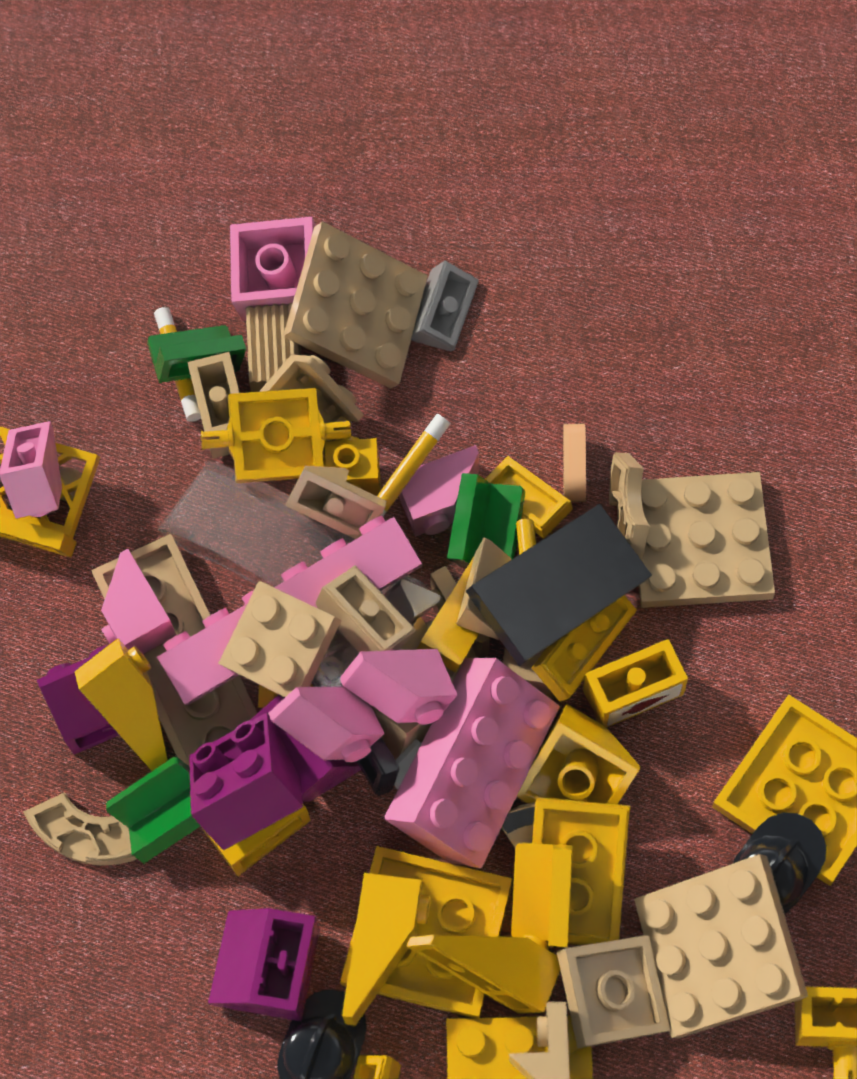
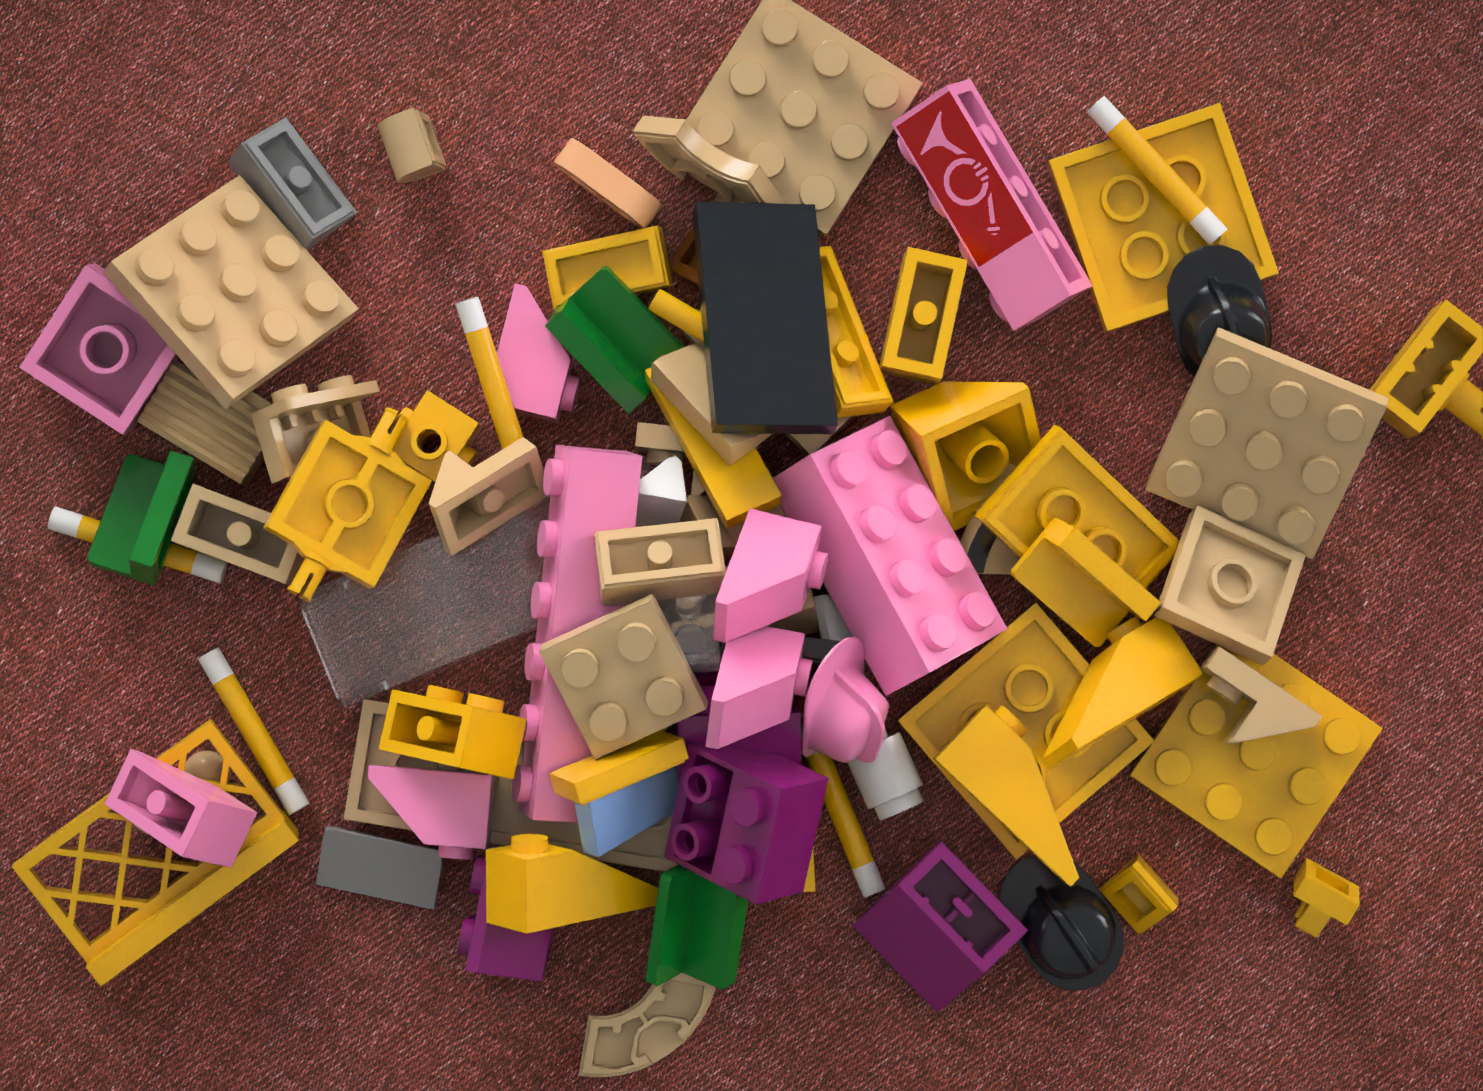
camera: 60 degrees left, 20 degrees up
(76, 612) = (380, 867): none -> light grey slope
(111, 494) = (253, 731): none -> yellow bar
(182, 580) = (454, 733): none -> yellow brick
(203, 705) = (626, 812): none -> light blue tile
(223, 680) = (639, 760): none -> yellow tile
(299, 852) = (847, 825): none -> yellow bar
(338, 862) = (889, 781): none -> white brick
(357, 791) = (844, 708): none -> bright pink piece
(514, 348) = (411, 145): none -> tan brick
(733, 678) = (990, 204): none -> bright pink brick
(834, 760) = (1157, 170): none -> yellow bar

